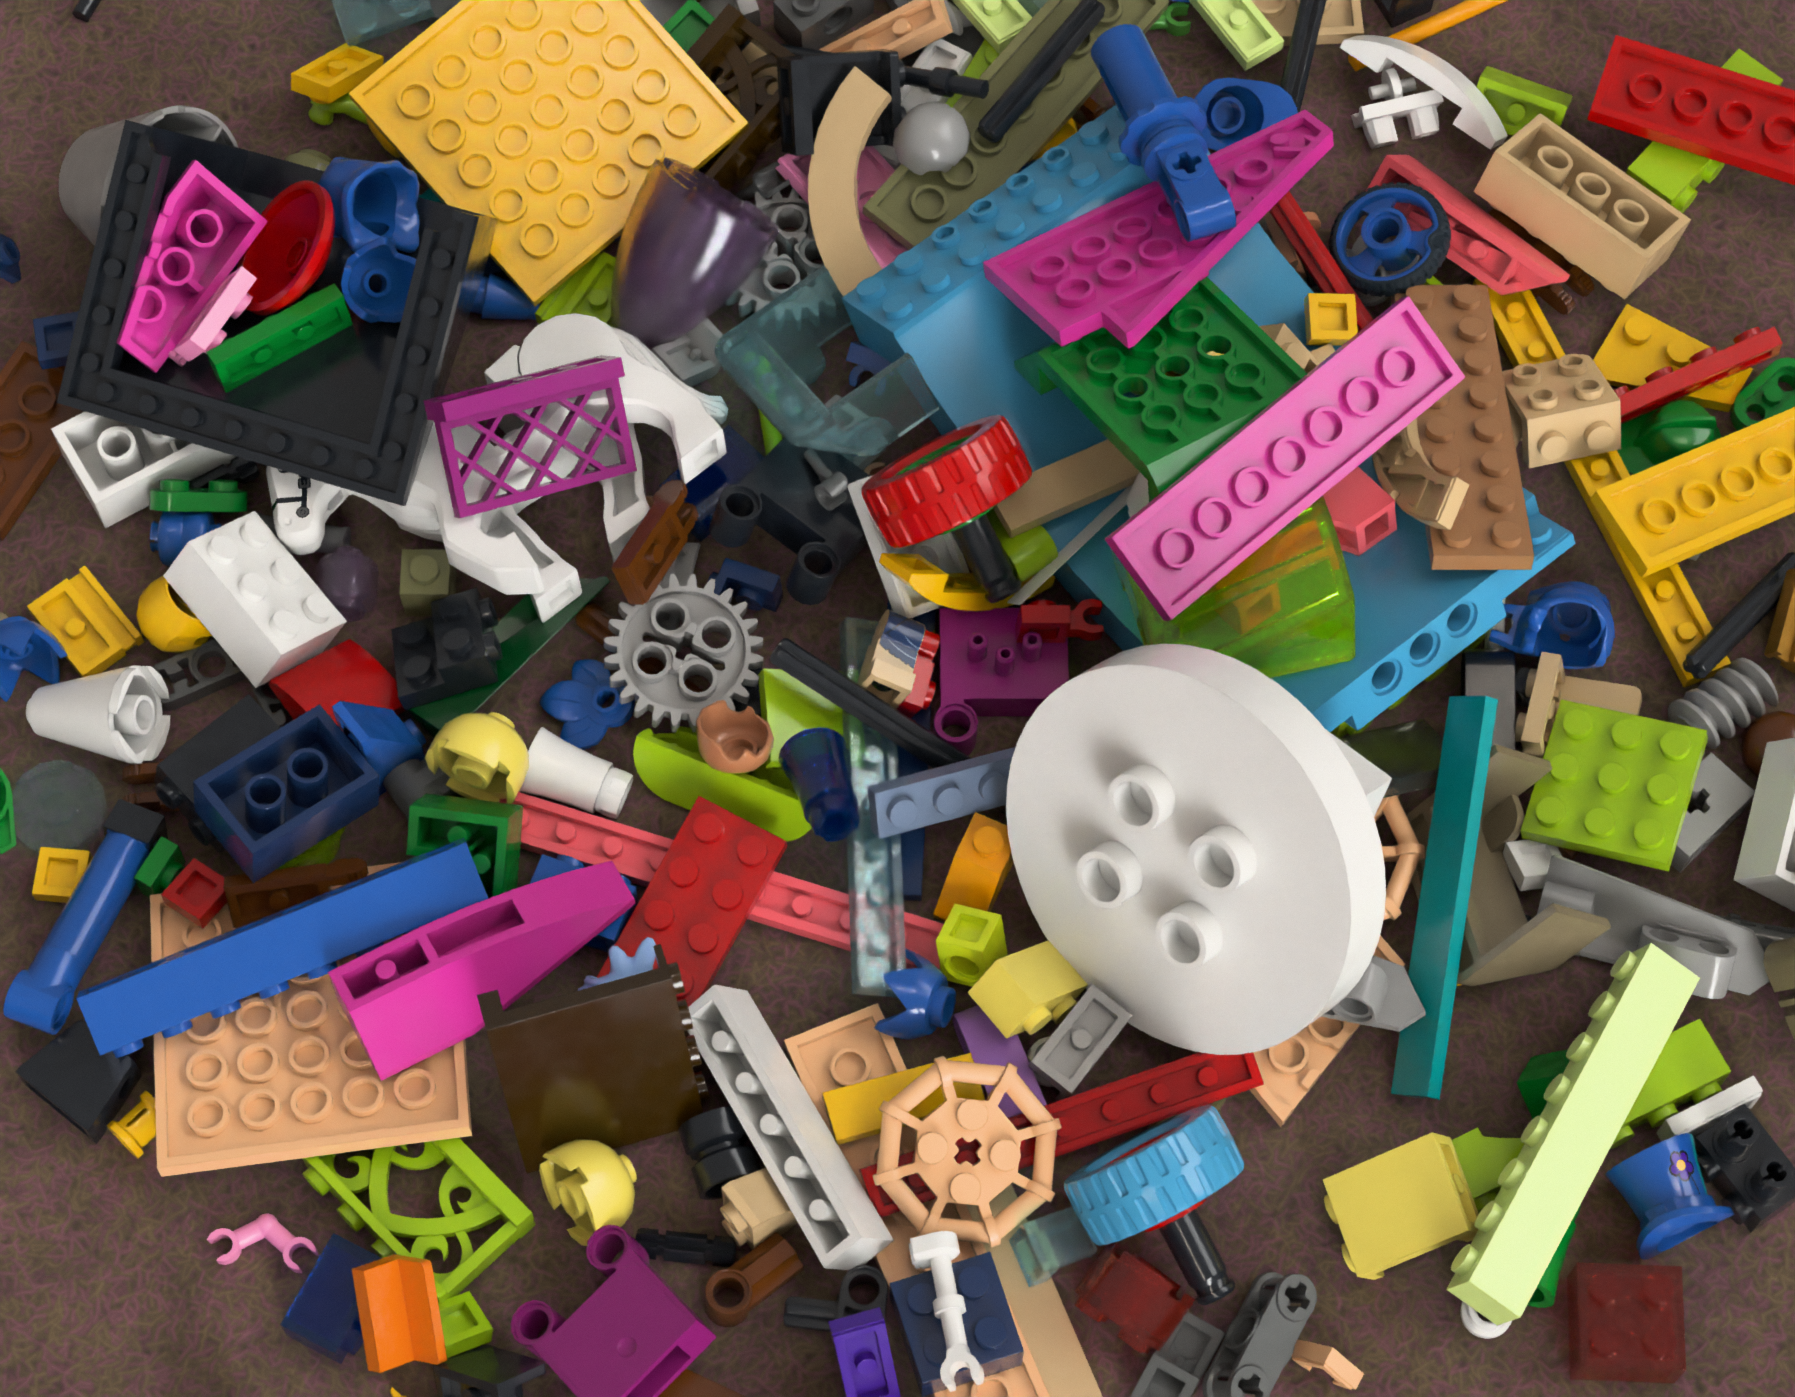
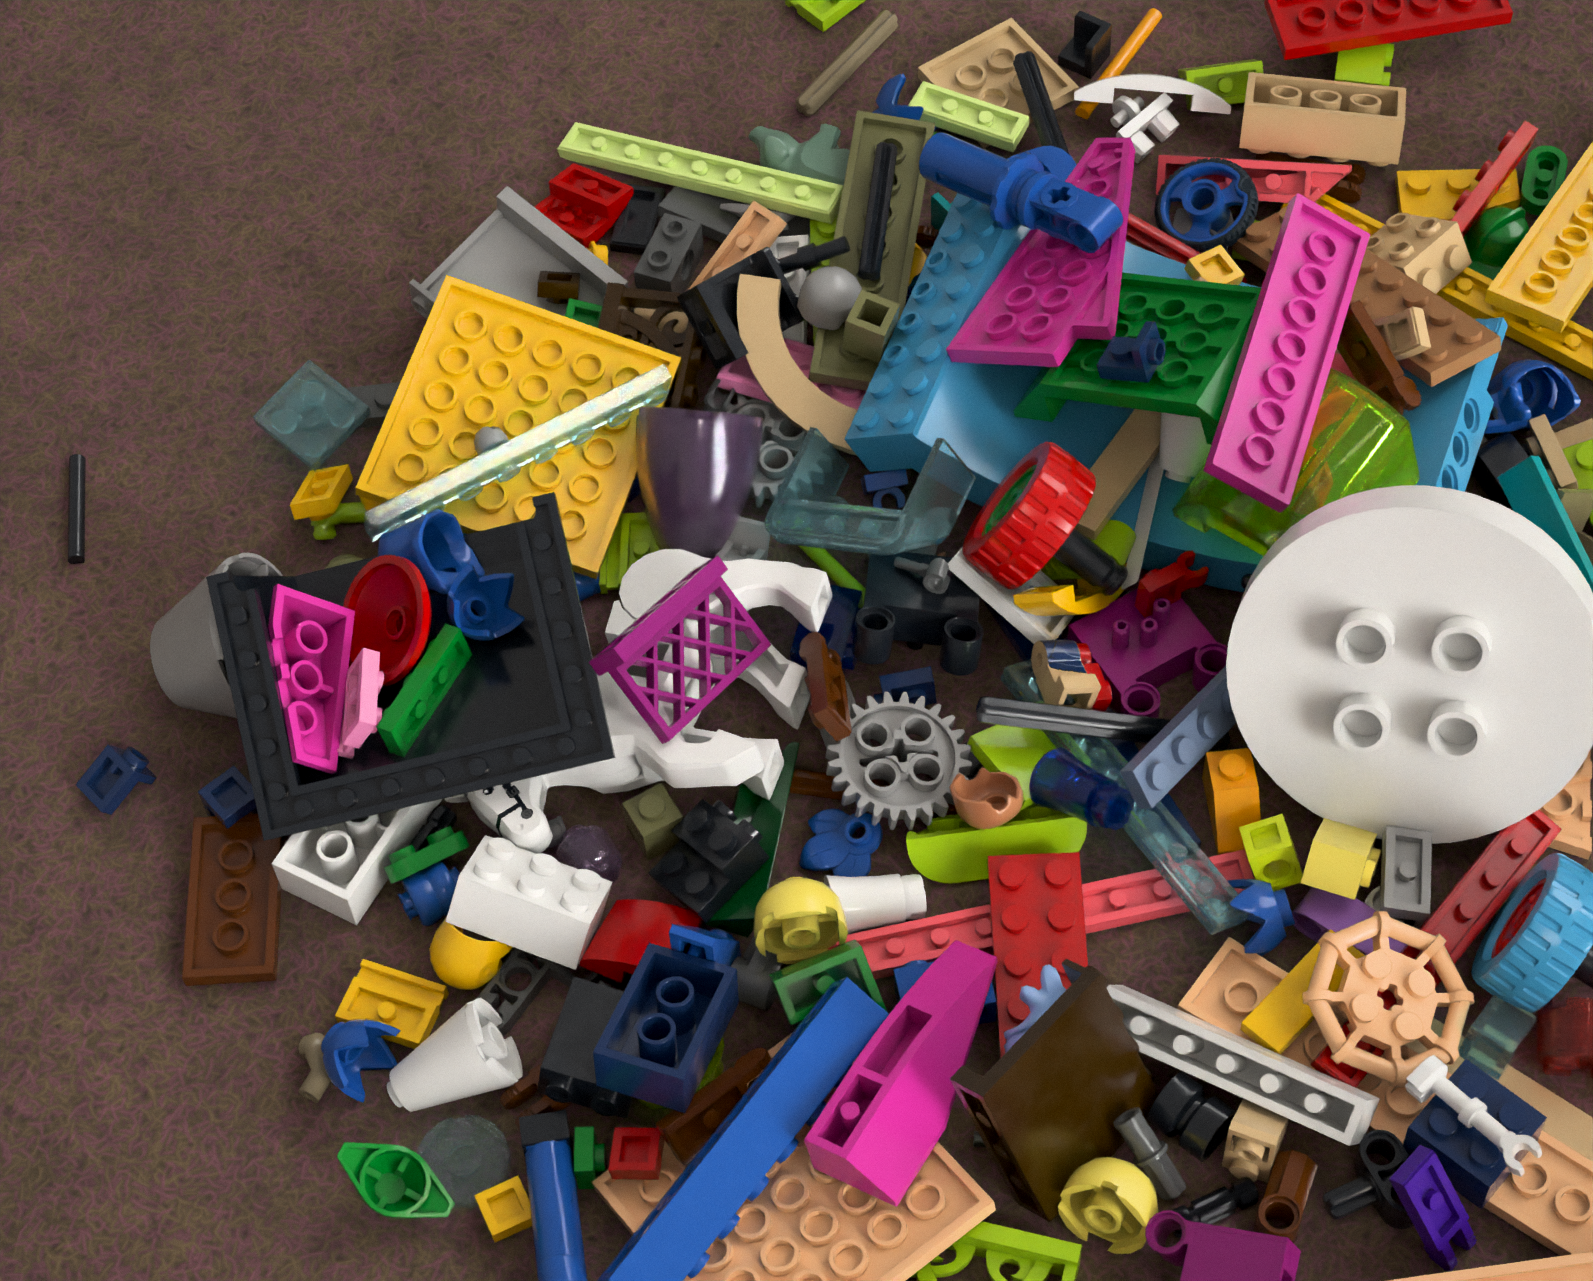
camera: 25 degrees left, 10 degrees down
(501, 118) = (489, 438): none -> light grey hinge
(543, 143) = (507, 459): none -> clear light blue plate
(655, 1165) = (1150, 1153): none -> dark grey axle
(942, 191) = (870, 325): none -> olive brick
(1131, 378) = (1133, 357): none -> dark blue bracket
(1390, 513) = (1373, 361): none -> reddish brown hinge

